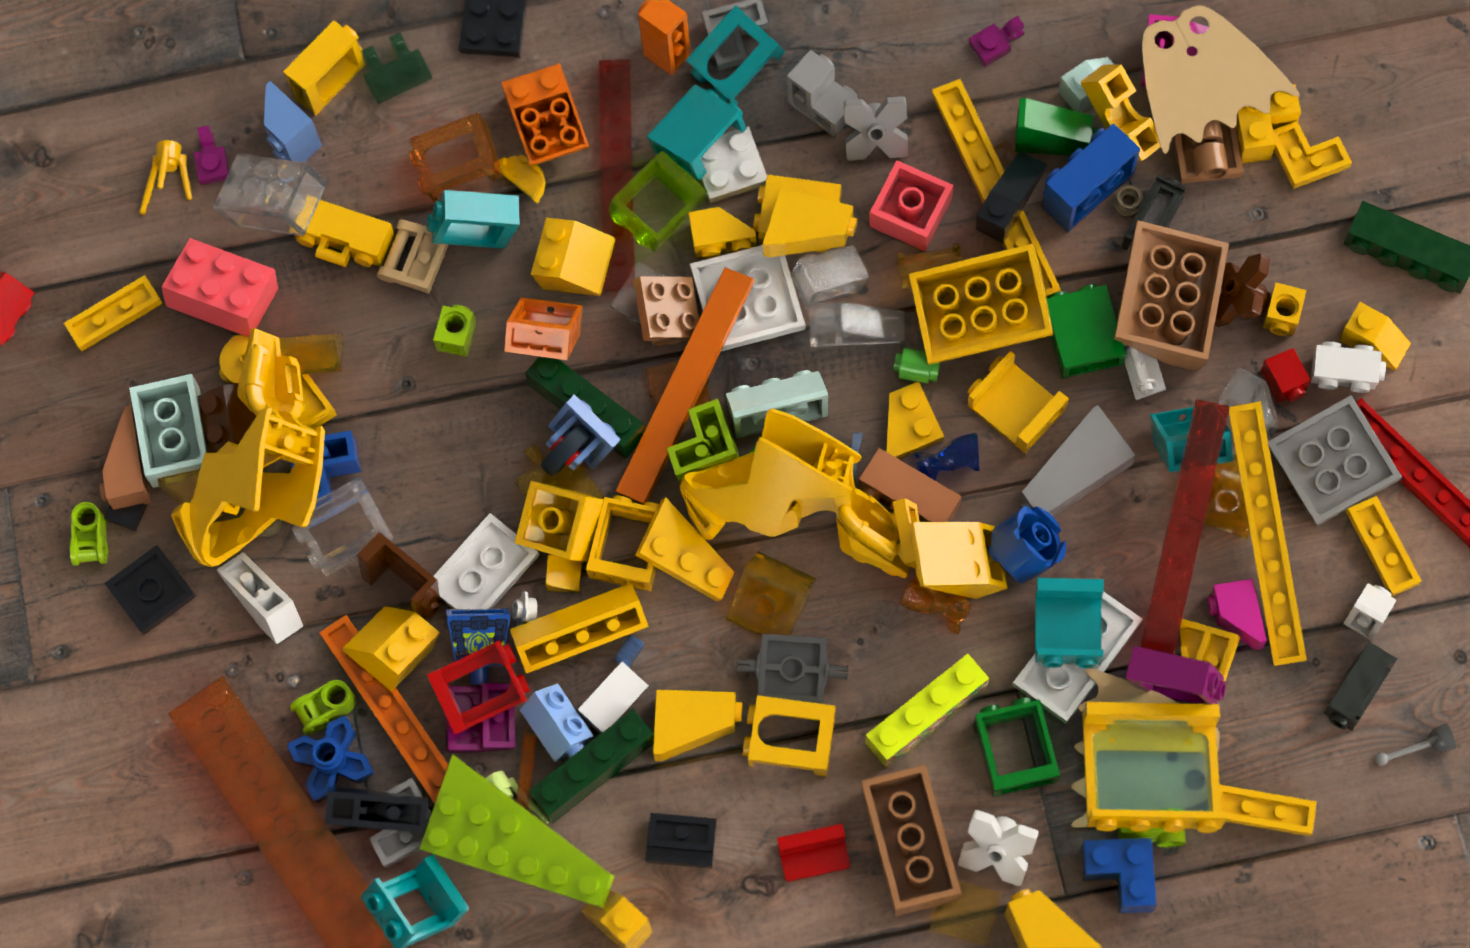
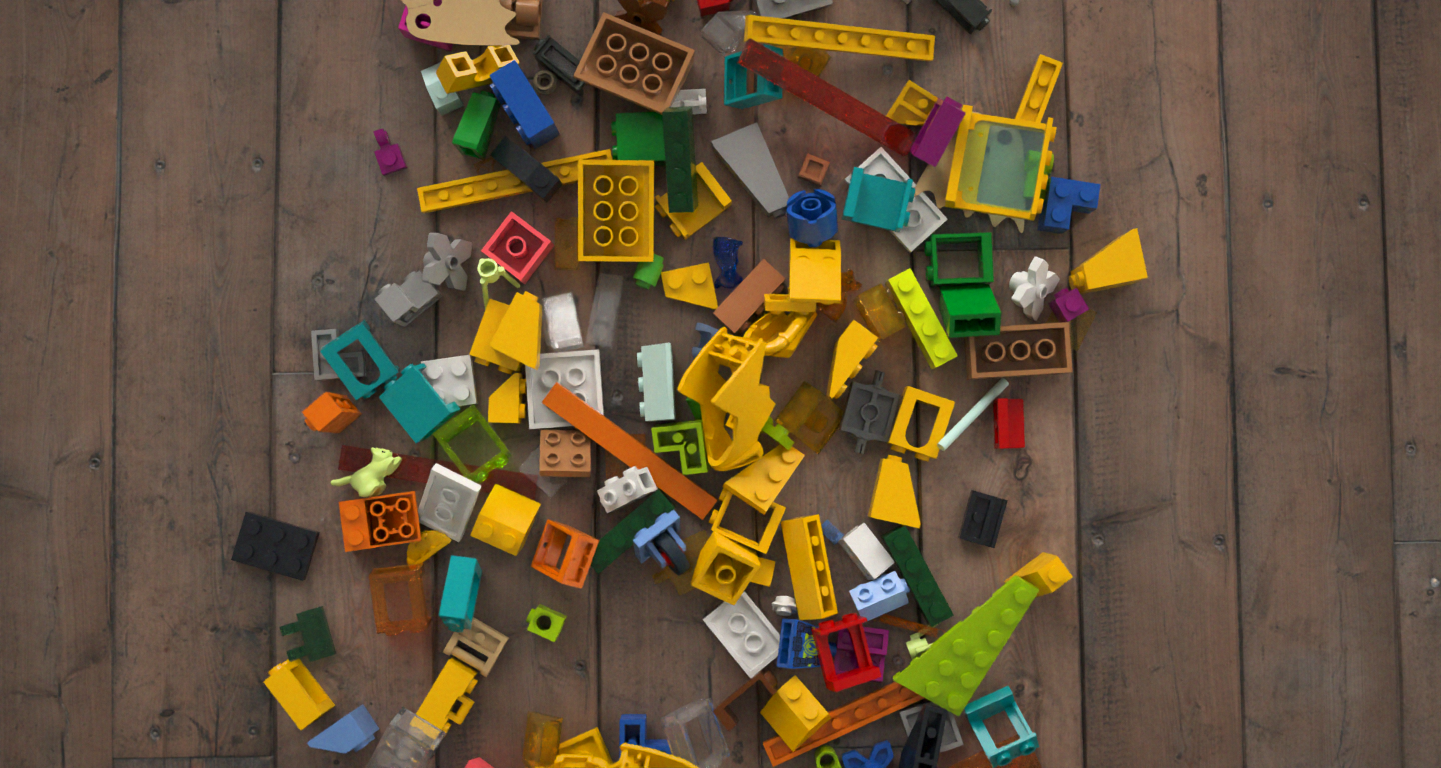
camera: 85 degrees left, 15 degrees up
(581, 184) = (448, 502): none -> white plate
(594, 95) = (370, 479): none -> yellowish green animal
(636, 388) = (627, 489): none -> white brick
(742, 554) = (777, 433): none -> lime plate
(816, 799) = (983, 403): none -> light aqua bar
(854, 621) = (848, 351): none -> yellow slope
(870, 176) = (490, 273): none -> yellowish green plant
(923, 654) = (879, 312): none -> clear yellow slope
(949, 762) = (969, 310): none -> green brick
(985, 896) = (1068, 305): none -> magenta brick
(1062, 366) = (680, 159): none -> dark green brick
(1094, 544) = (813, 169): none -> nougat tile
(1238, 611) = (887, 75): dark pink slope -> none

